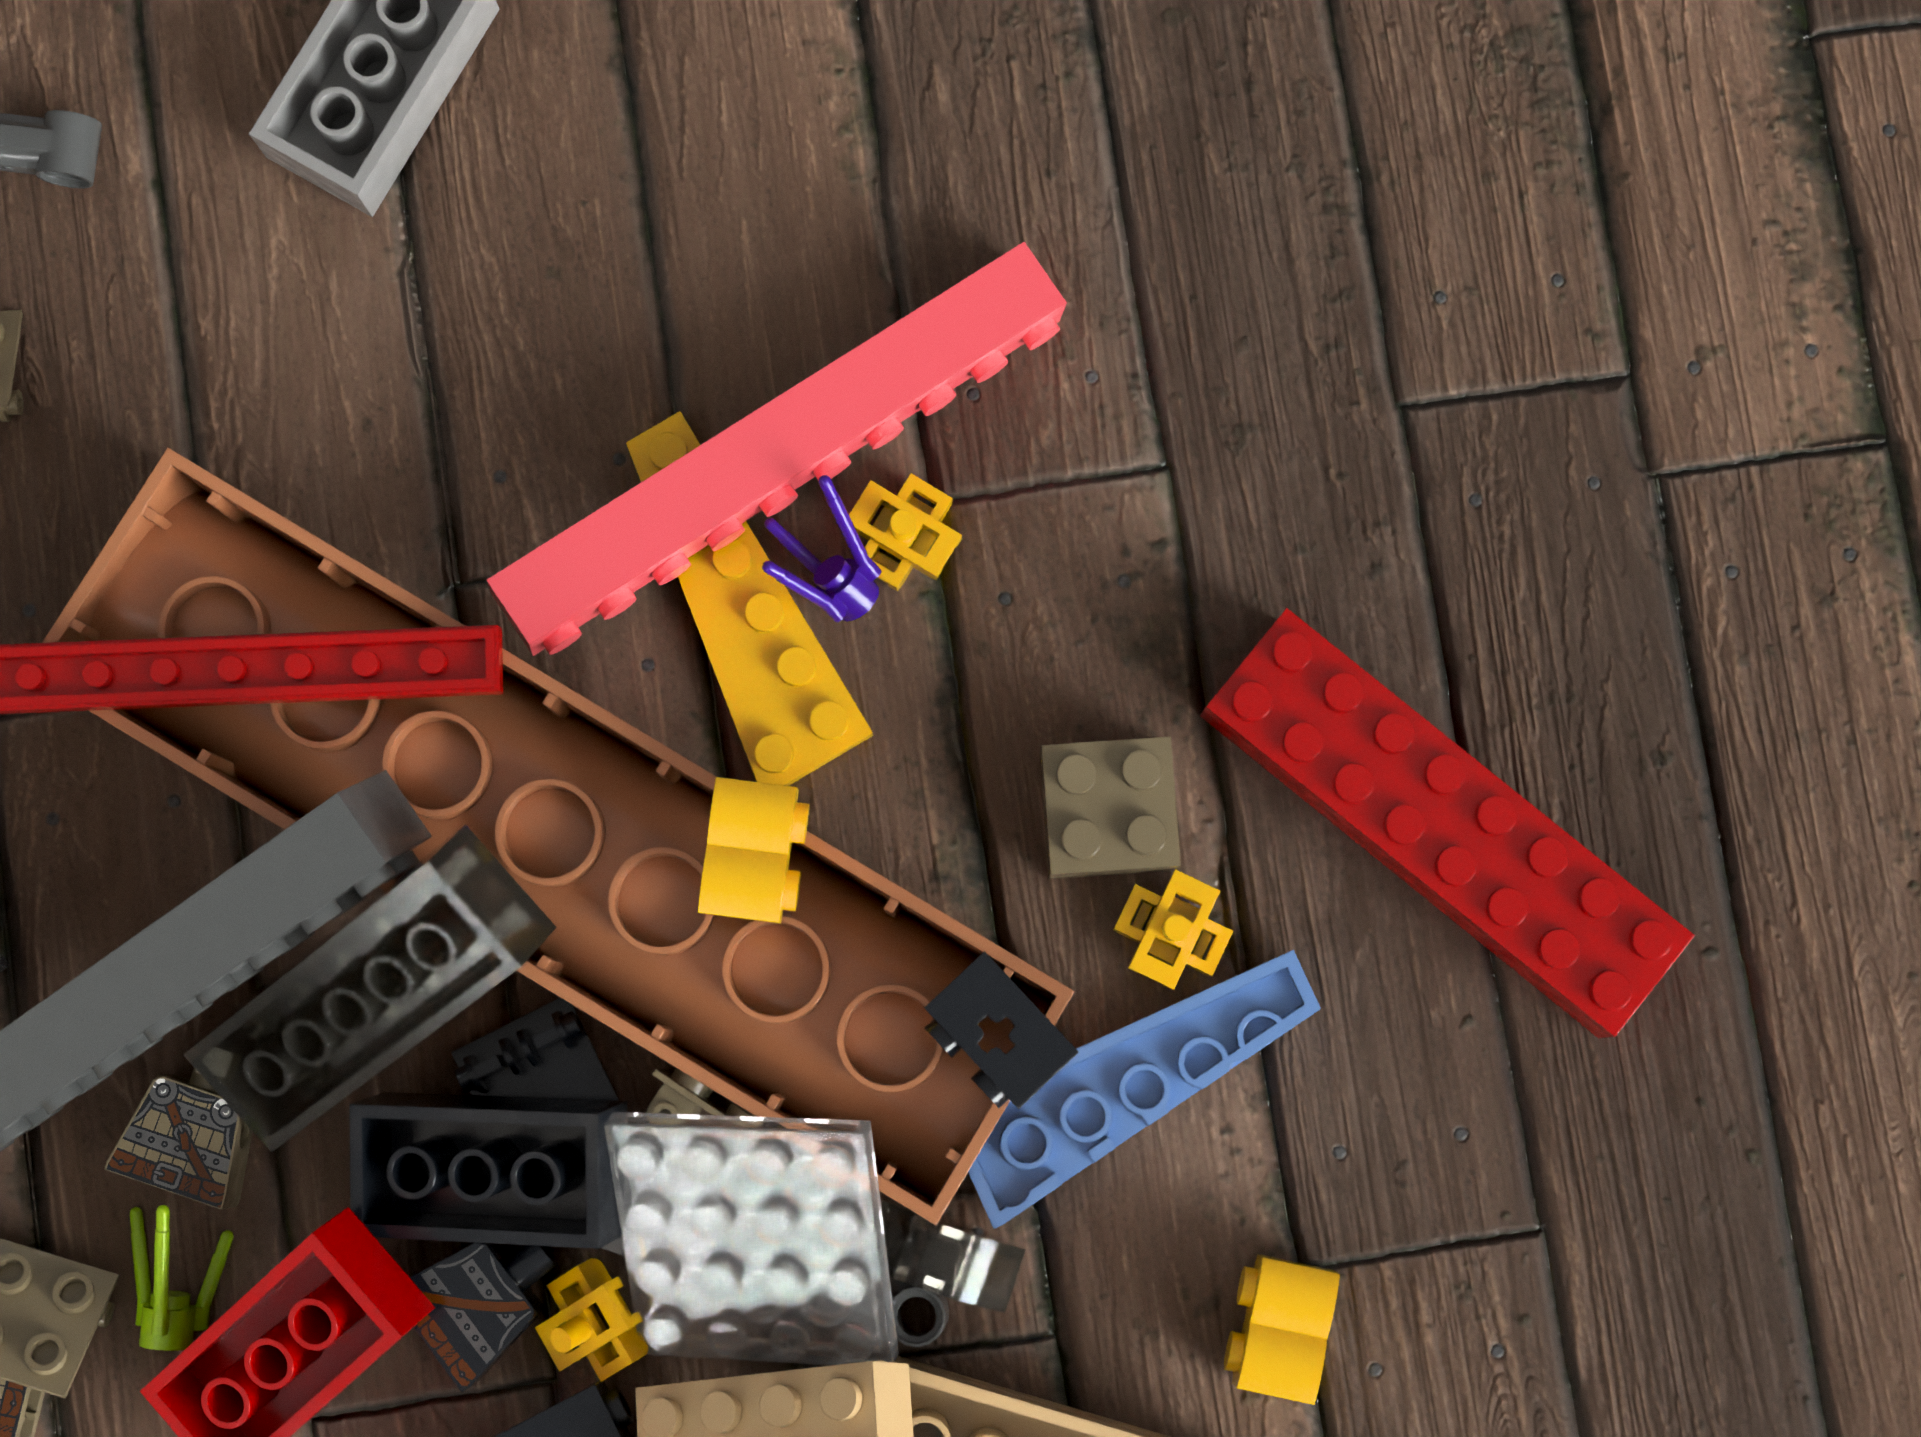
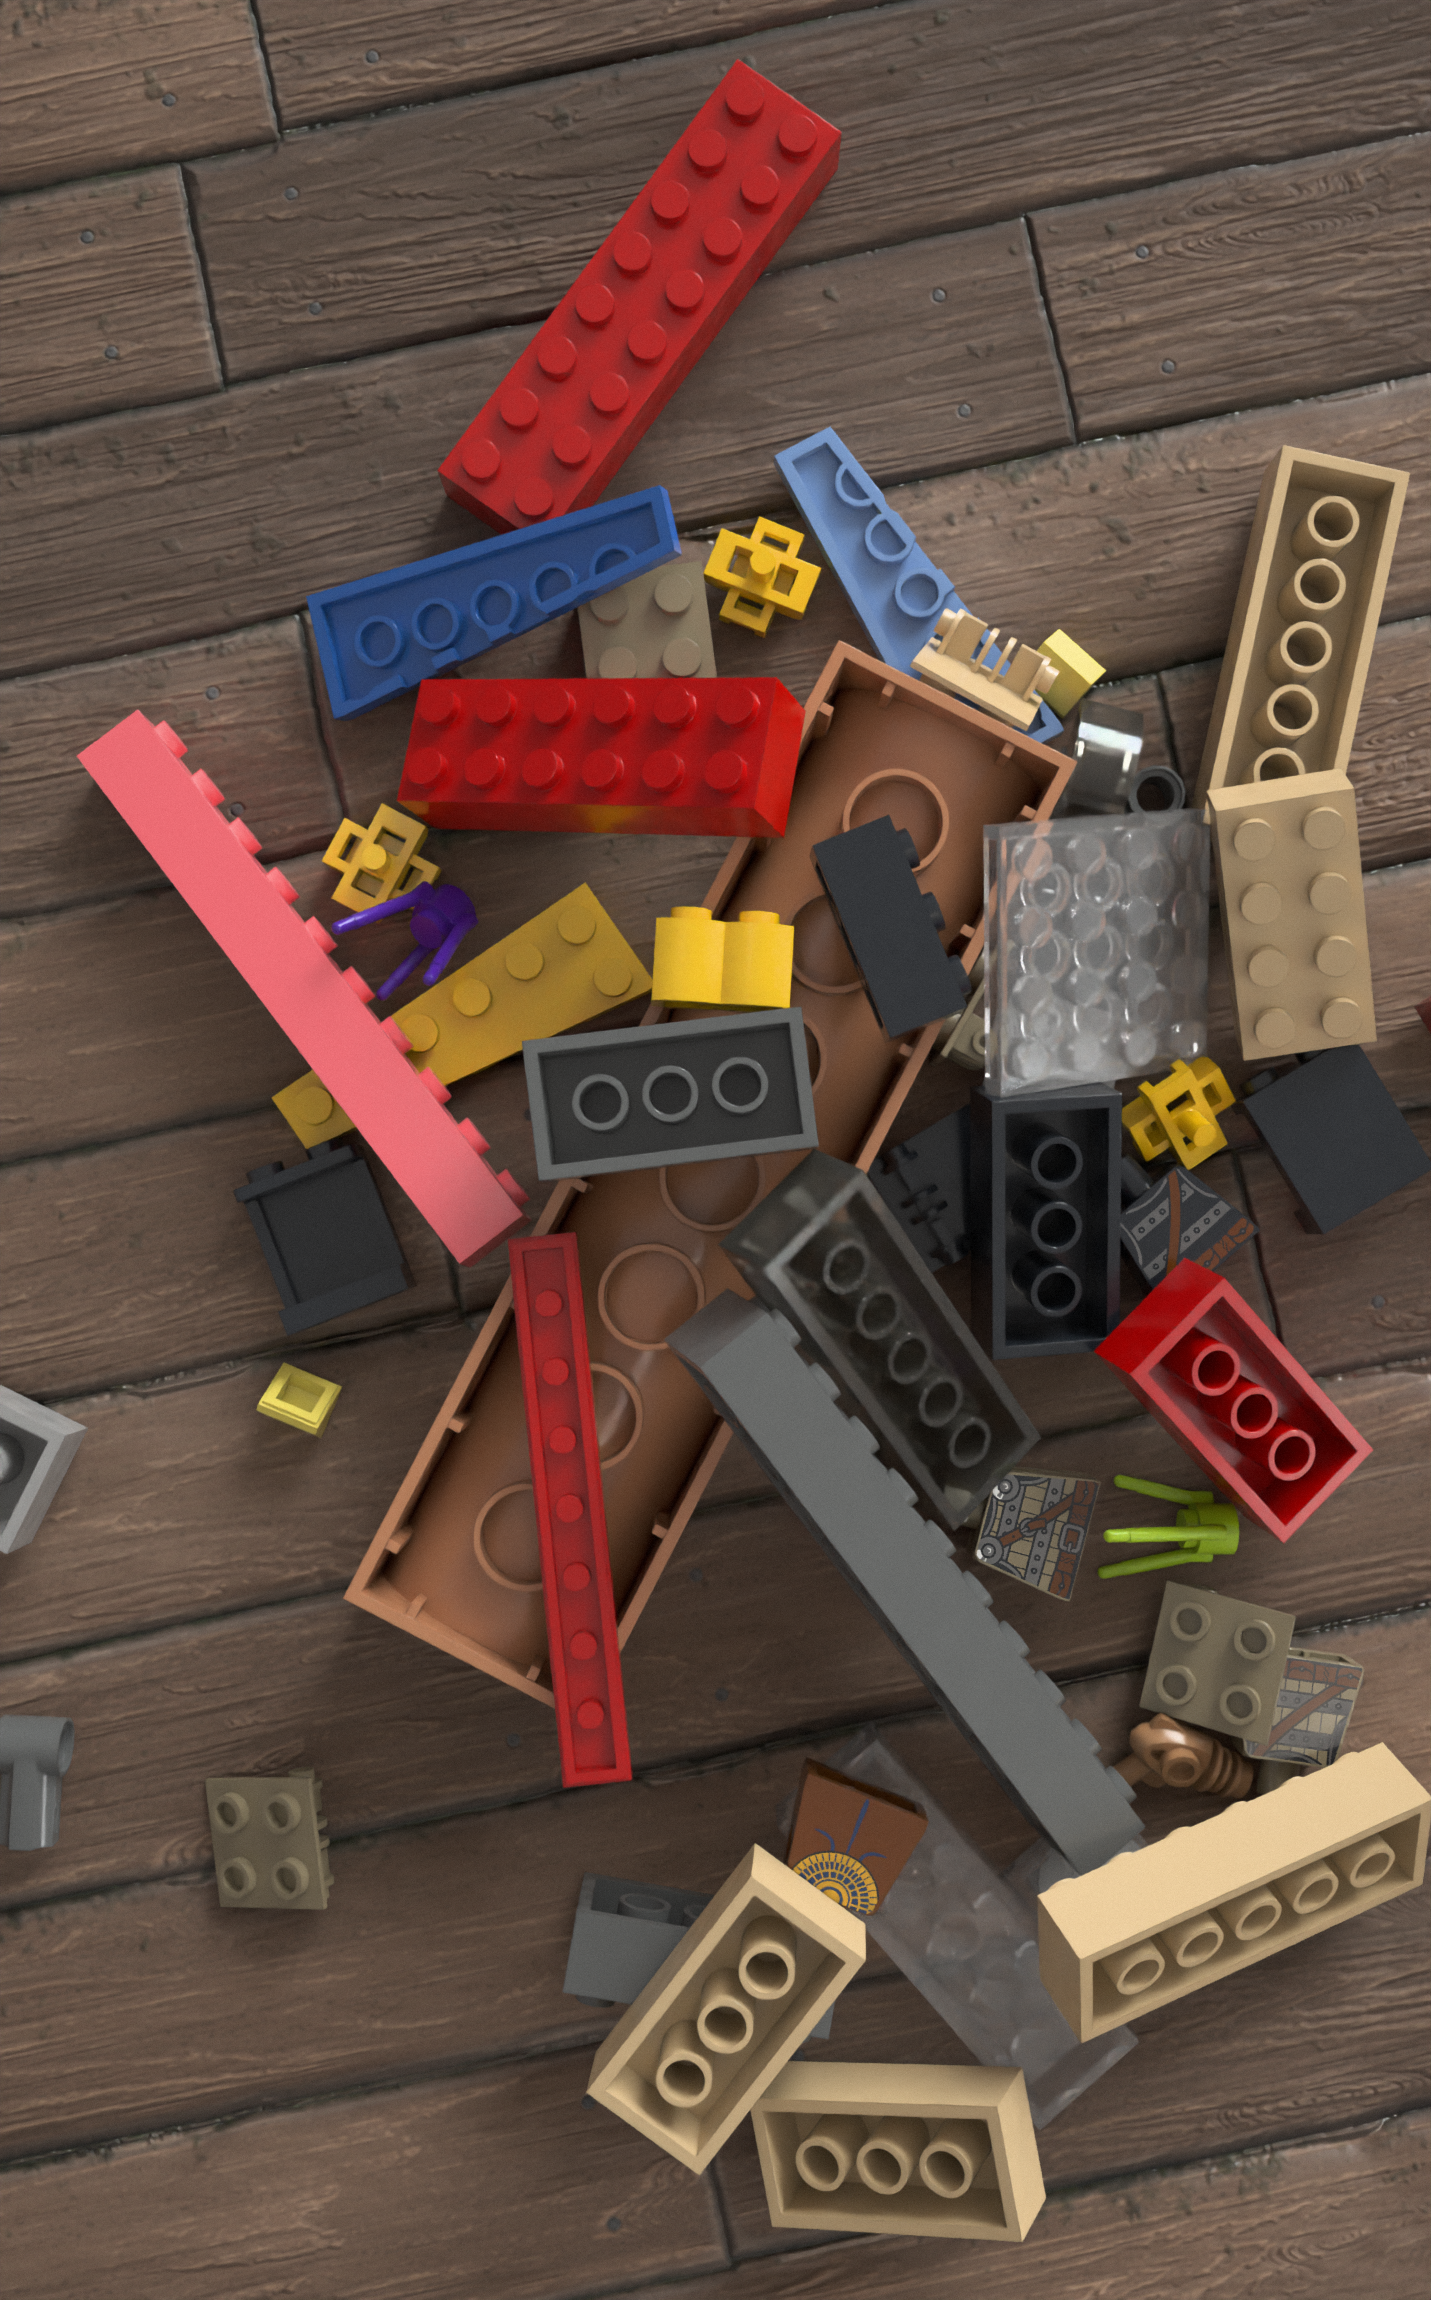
camera: 90 degrees left, 5 degrees up
(380, 421) = (300, 1400): none -> light yellow slope
(537, 457) = (325, 1234): none -> black panel
(619, 789) = (670, 1094): none -> dark grey brick
(772, 1020) = (890, 927): none -> black brick
(978, 753) = (604, 755): none -> red brick
(988, 992) = (899, 666): black brick -> none
(1034, 1137) = (951, 670): none -> tan hinge
(1058, 1233) = (1075, 676): none -> light yellow slope
(1148, 609) = (455, 606): none -> blue wing
(1282, 1329) = (1139, 447): yellow brick -> none

